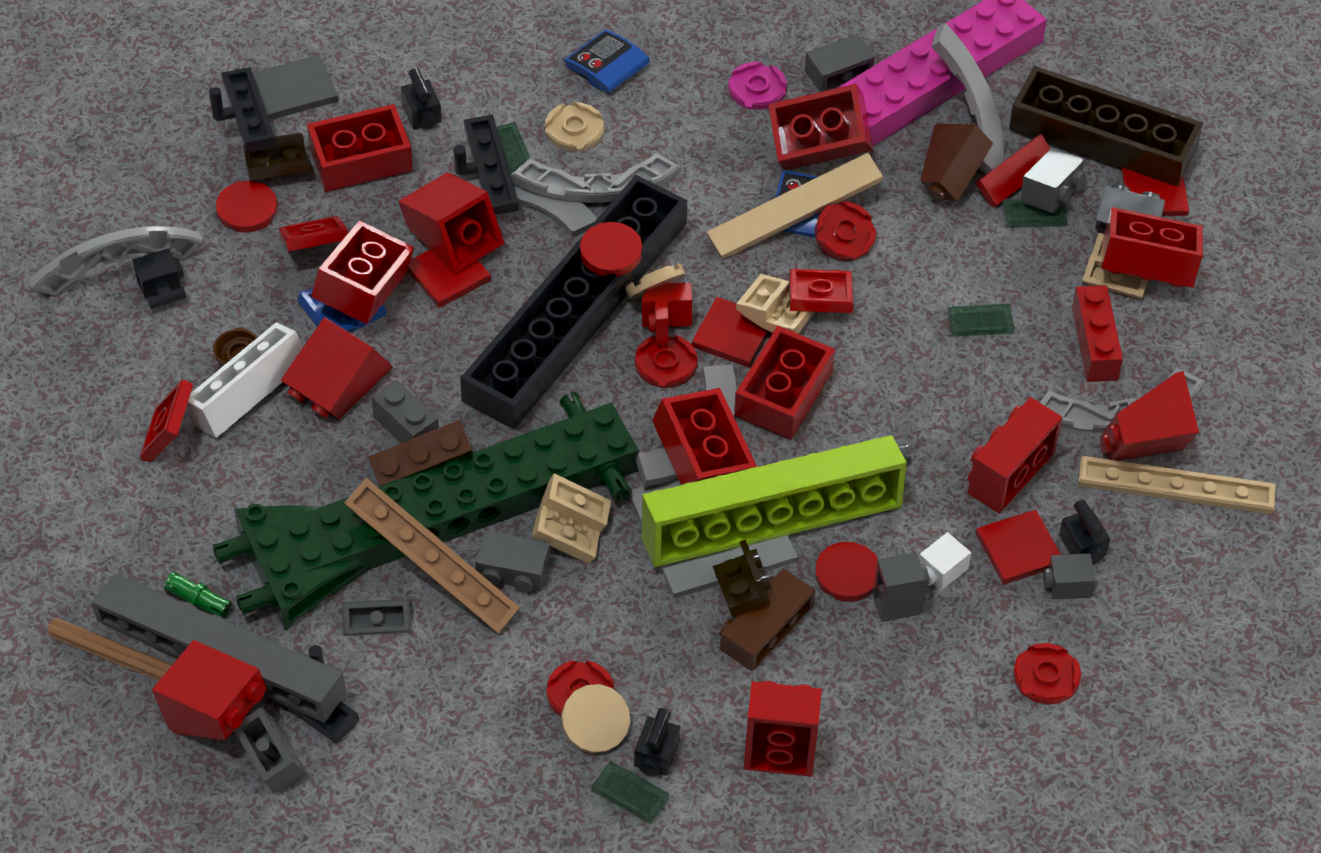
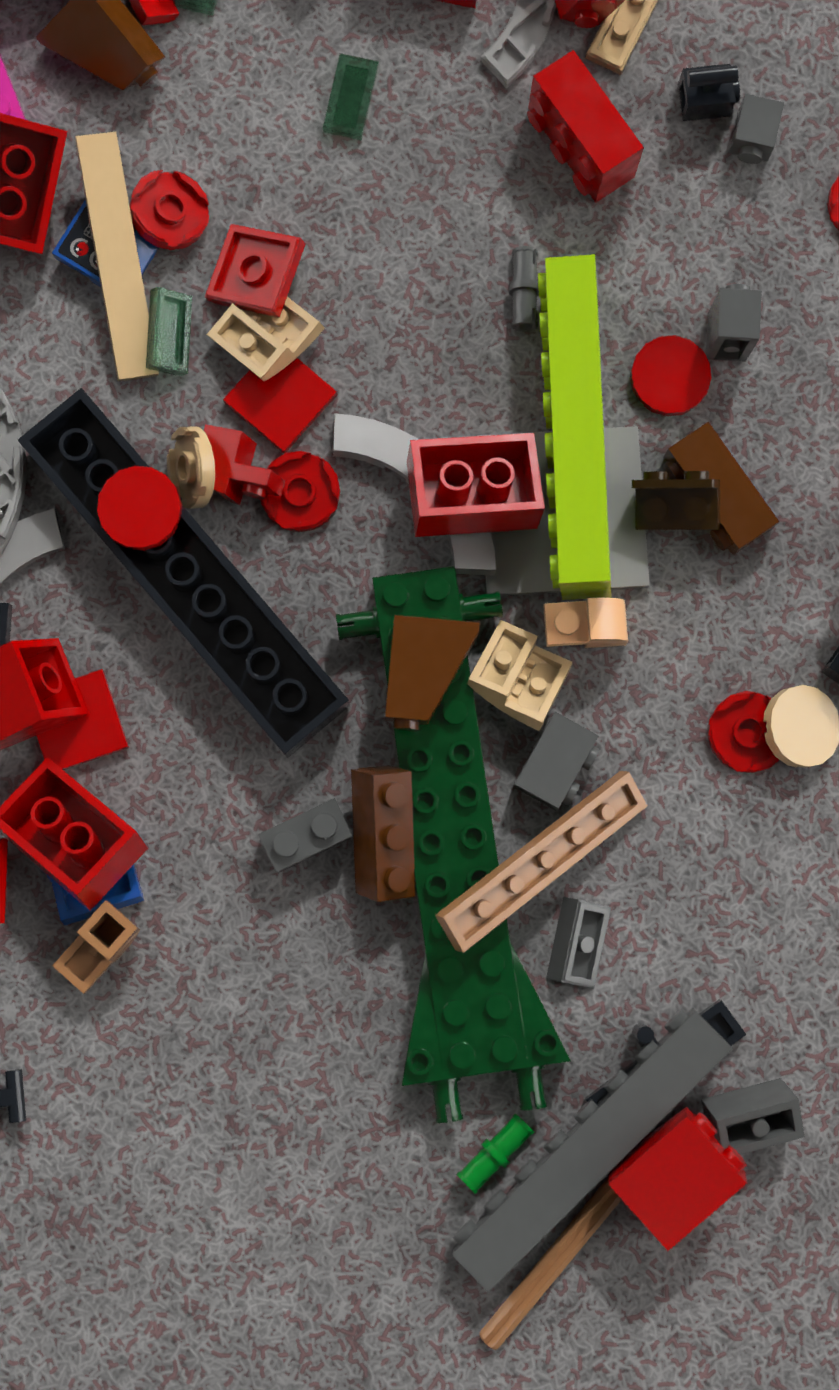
camera: 75 degrees left, 30 degrees up
(166, 421) = (232, 1140): red tile -> none
(232, 343) = (130, 1023): reddish brown hat -> none
(244, 380) = (191, 1024): white brick -> none
(296, 311) = (99, 944): none -> medium nougat brick
(334, 370) = (206, 905): red slope -> none
(551, 436) = (423, 665): none -> reddish brown slope
(629, 553) = (588, 622): none -> light nougat brick
(754, 253) = (169, 331): none -> clear green tile
(784, 382) = (391, 358): red brick -> none
(945, 561) = (697, 263): white brick -> none
(1018, 546) = (690, 170): red tile -> none

